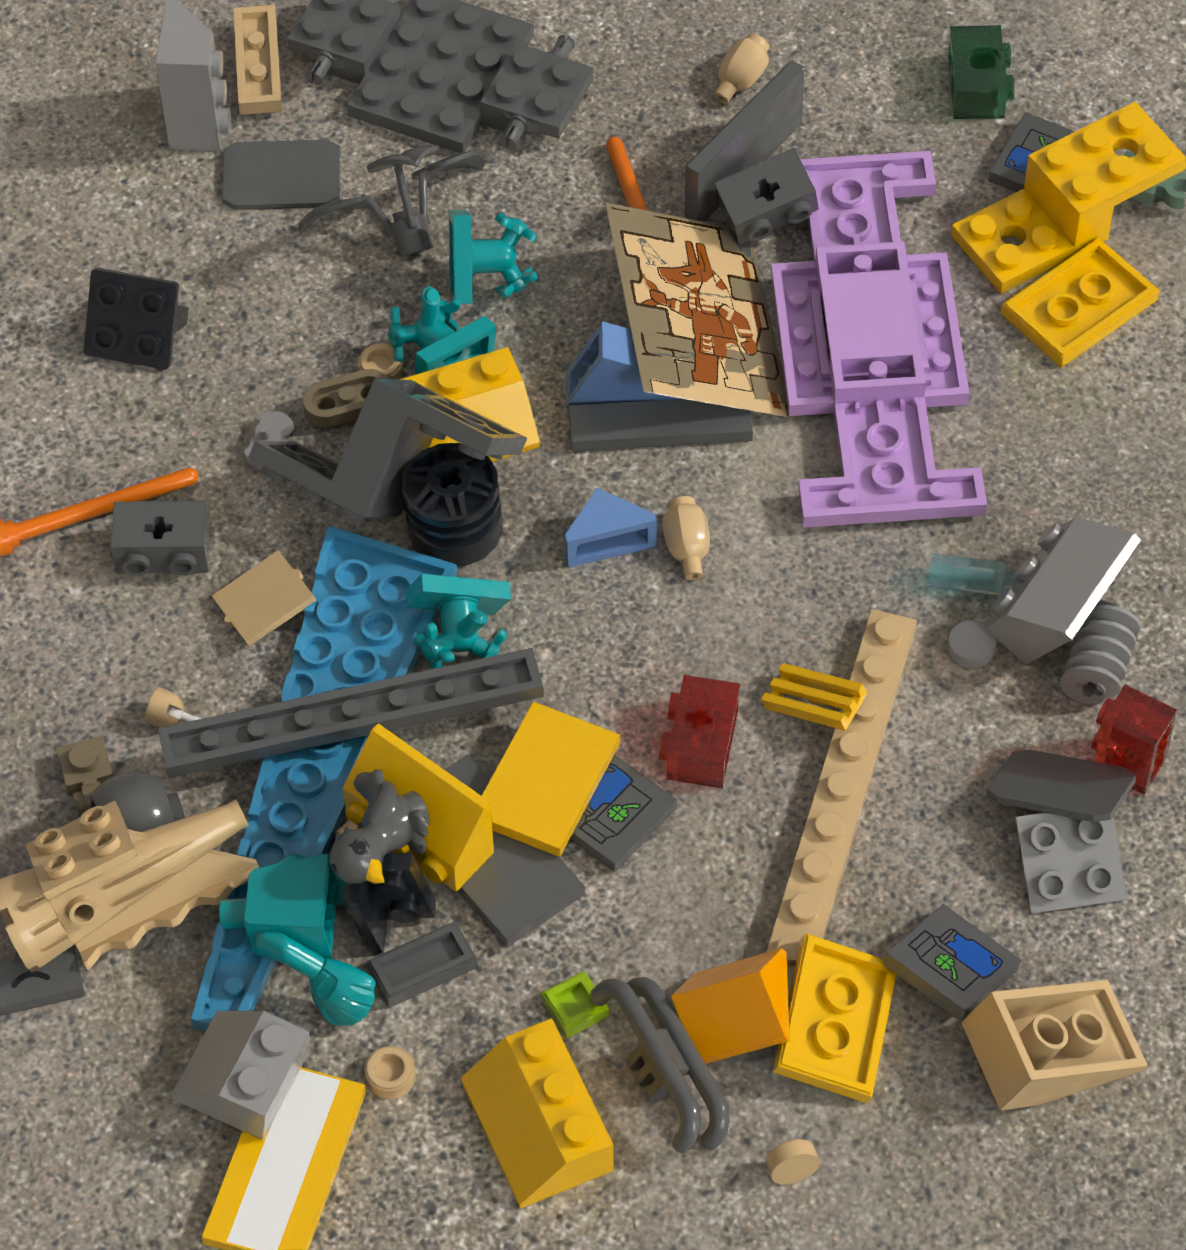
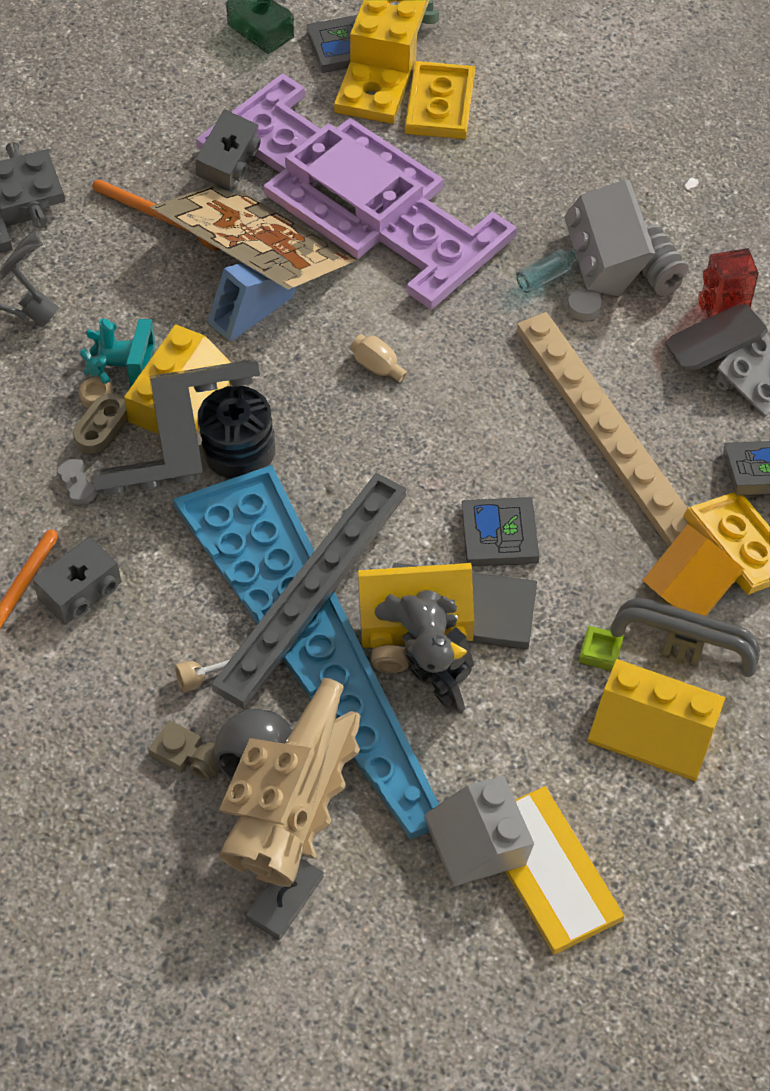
camera: 45 degrees left, 0 degrees up
(263, 598) = (178, 568): tan piece -> none
(293, 921) = (420, 725): teal torso -> none
(390, 1072) = (546, 768): tan tile -> none
(422, 964) = (495, 696): dark grey tile -> none
(463, 613) = (317, 495): teal piece -> none
(481, 256) = (93, 292): teal piece -> none
(548, 777) = (455, 531): yellow tile -> none
(608, 529) = (333, 383): medium blue slope -> none
(656, 424) = (290, 314): dark grey tile -> none
(701, 731) = (506, 450): clear red brick -> none
(741, 66) = (126, 98): tan plant -> none
(745, 140) = (182, 129): dark grey tile -> none
(818, 690) = (540, 383): yellow tile -> none

